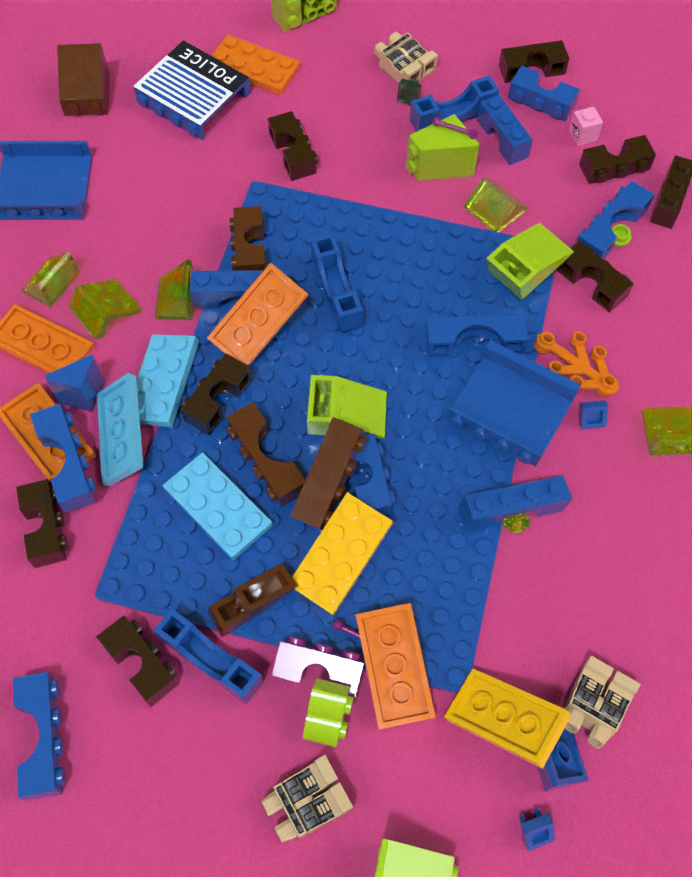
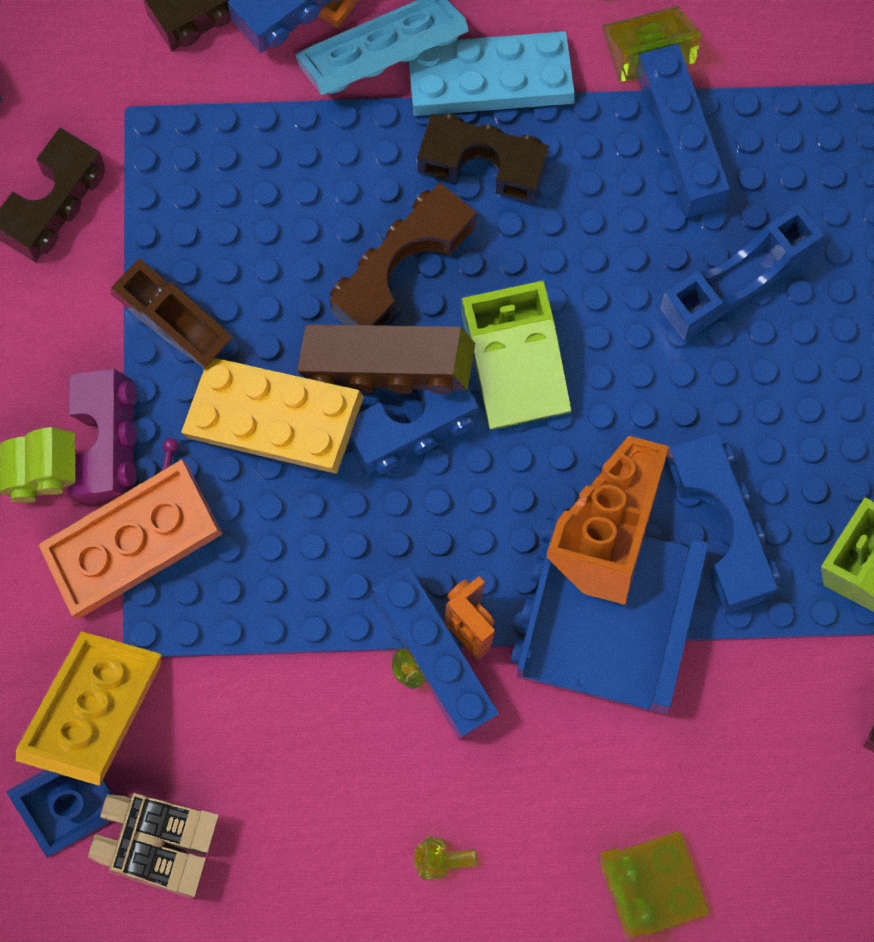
camera: 75 degrees right, 10 degrees up
(205, 655) = (62, 318): blue arch -> none
(218, 506) = (304, 222): medium azure plate -> none
(247, 226) = (808, 99): reddish brown arch -> none
(258, 315) = (631, 171): orange tile -> none
(463, 384) = (605, 528): none -> orange wedge
(503, 474) = (468, 619): none -> orange bracket
(593, 414) = (639, 748): blue tile -> none
(601, 380) = (726, 710): orange plant -> none
(634, 541) = (437, 860): none -> clear neon green plate

